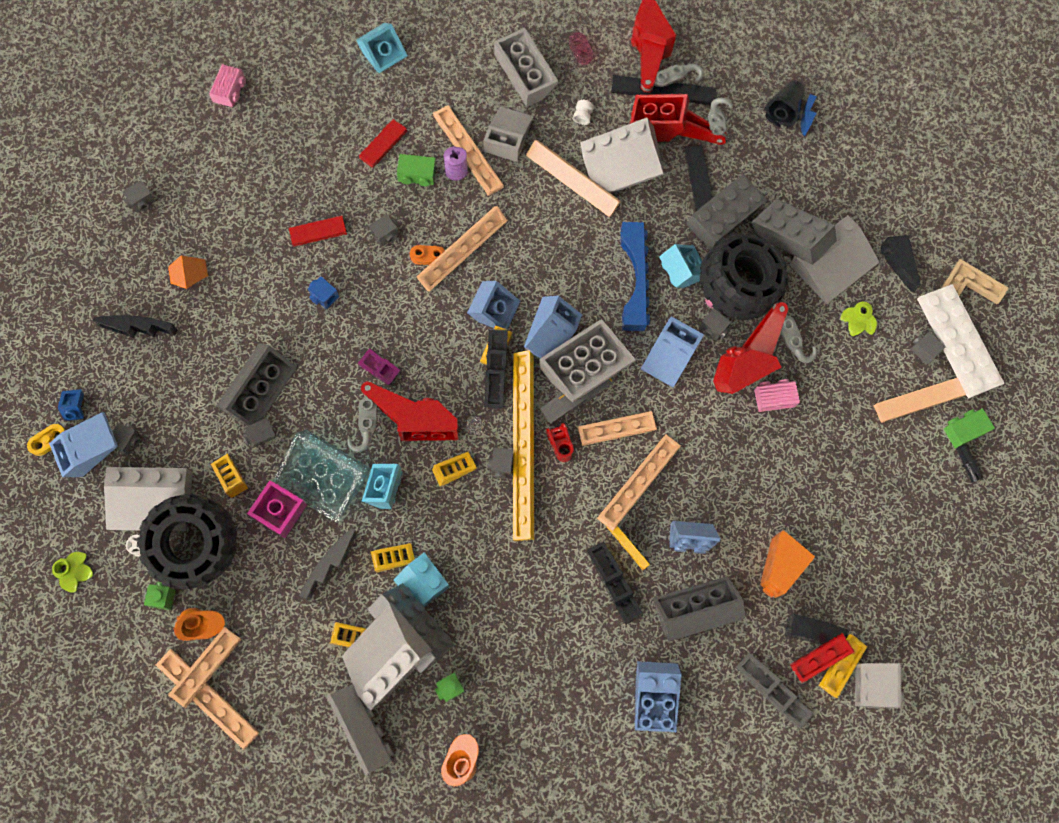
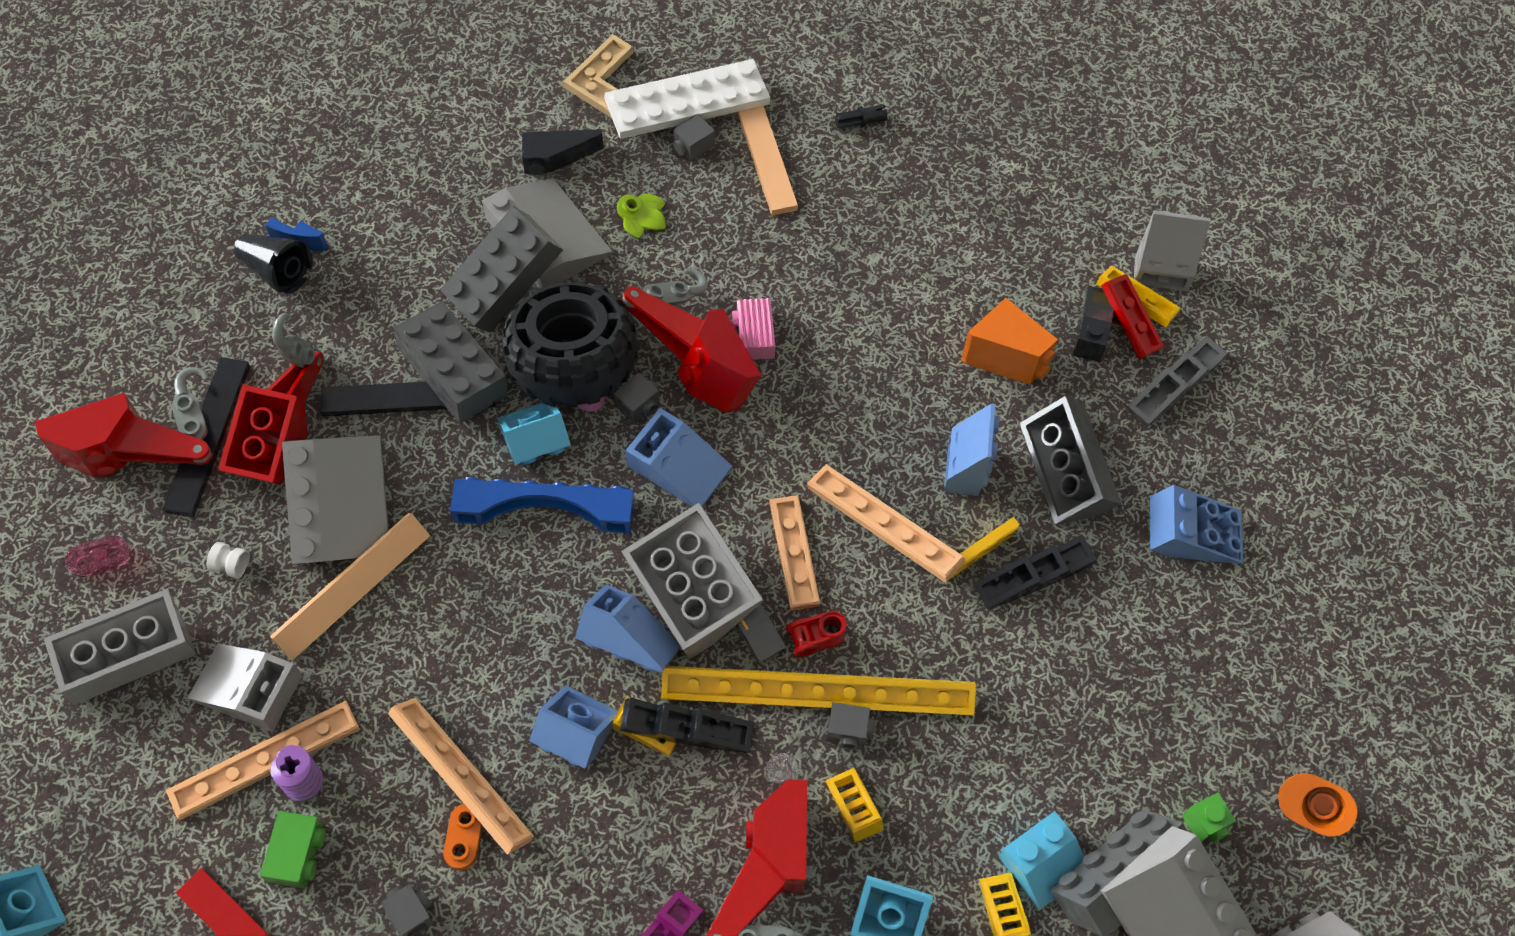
camera: 85 degrees left, 10 degrees down
(968, 428) = (813, 109): bright green brick -> none

